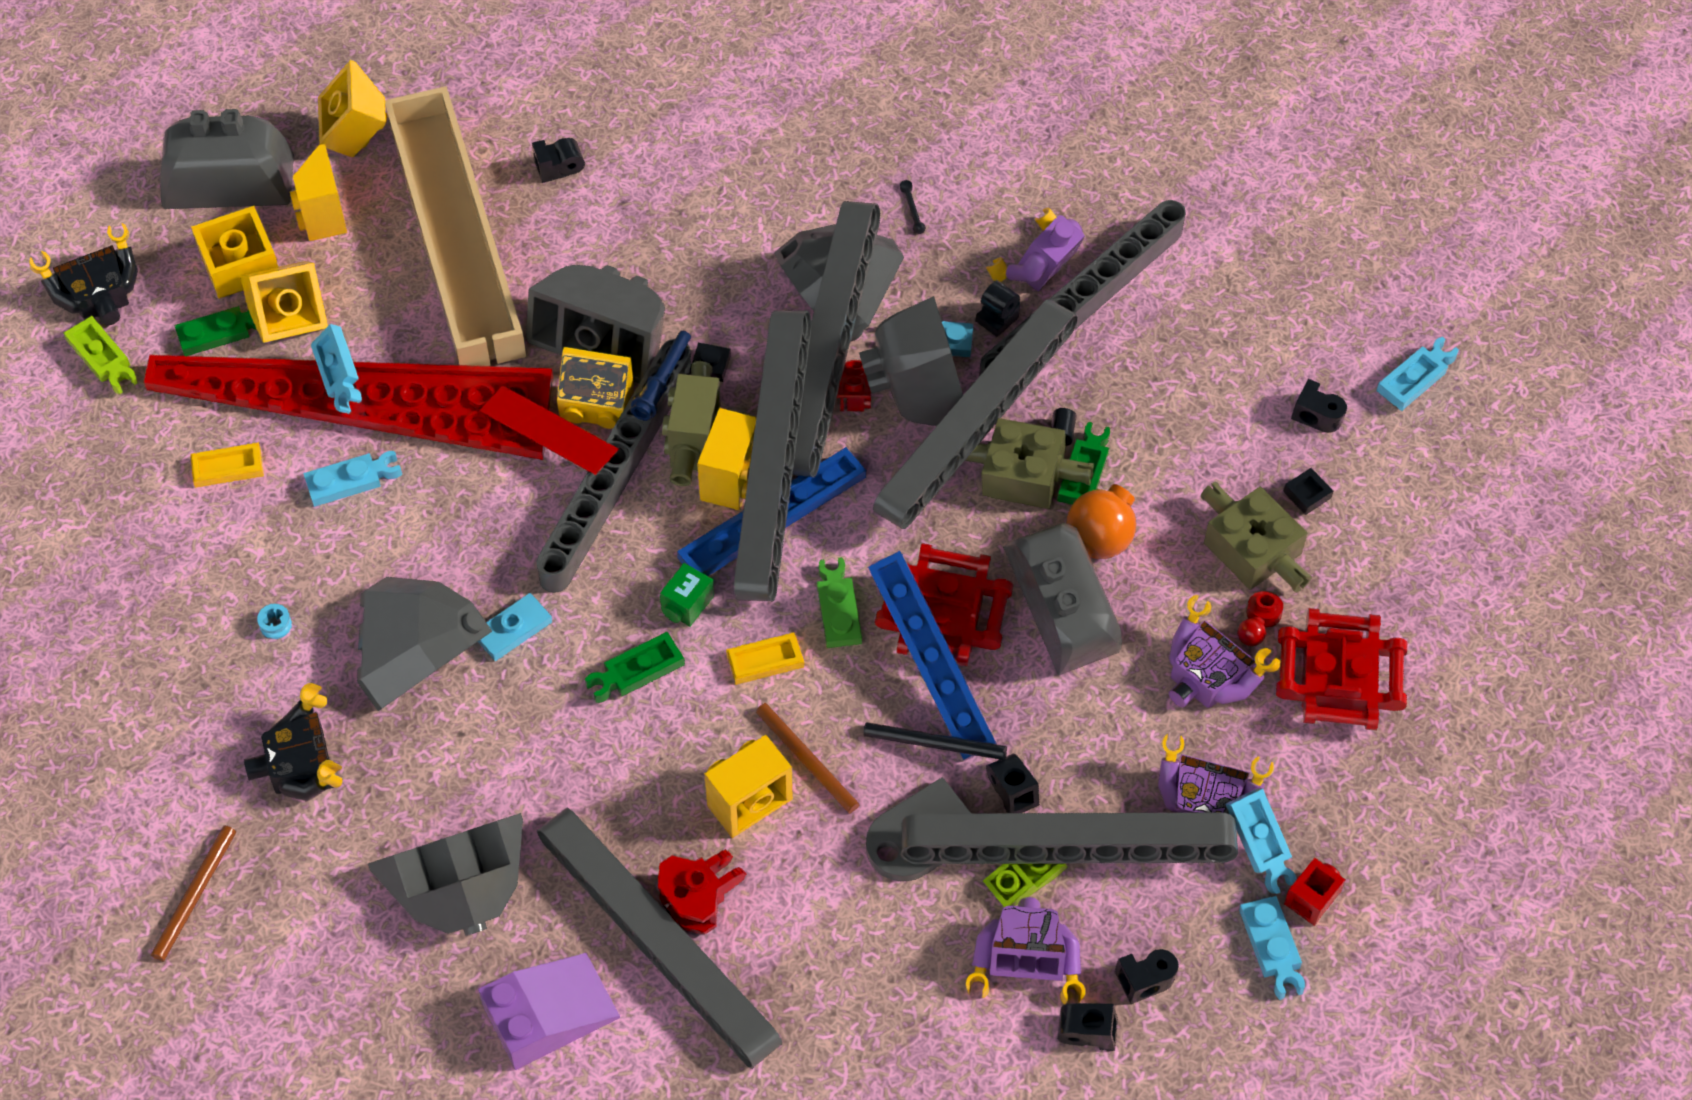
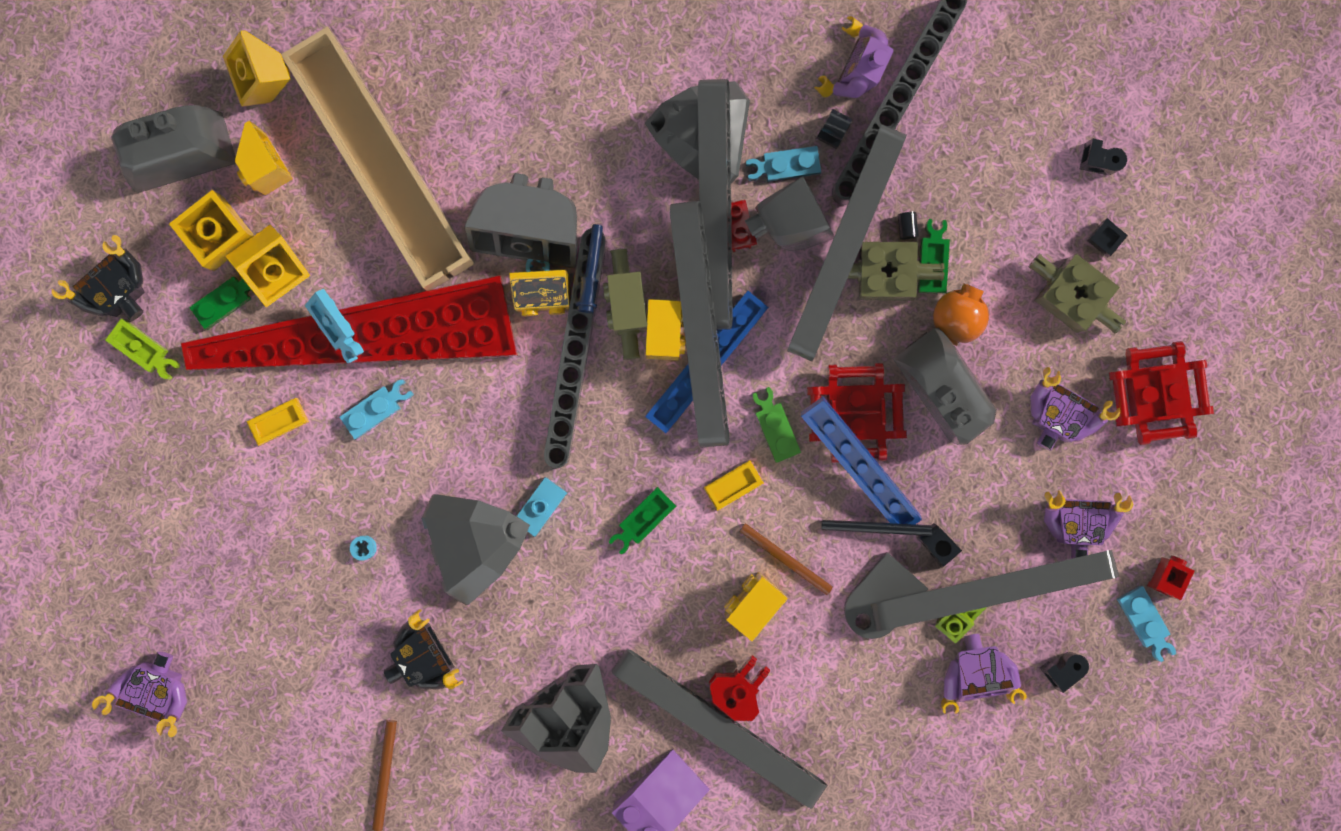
camera: 15 degrees left, 30 degrees up
(549, 430) = (516, 336): red sticker -> none
(557, 159) = (440, 66): black leg -> none
(686, 595) = (662, 452): green brick -> none
(716, 356) = (620, 232): black plate -> none
(906, 187) = (729, 19): black hinge -> none
(1088, 1025) = (1033, 719): black leg -> none
(1253, 630) = (1088, 373): red plate -> none
(1262, 837) = (1129, 550): medium azure plate -> none
(1416, 374) = (1172, 106): medium azure plate -> none

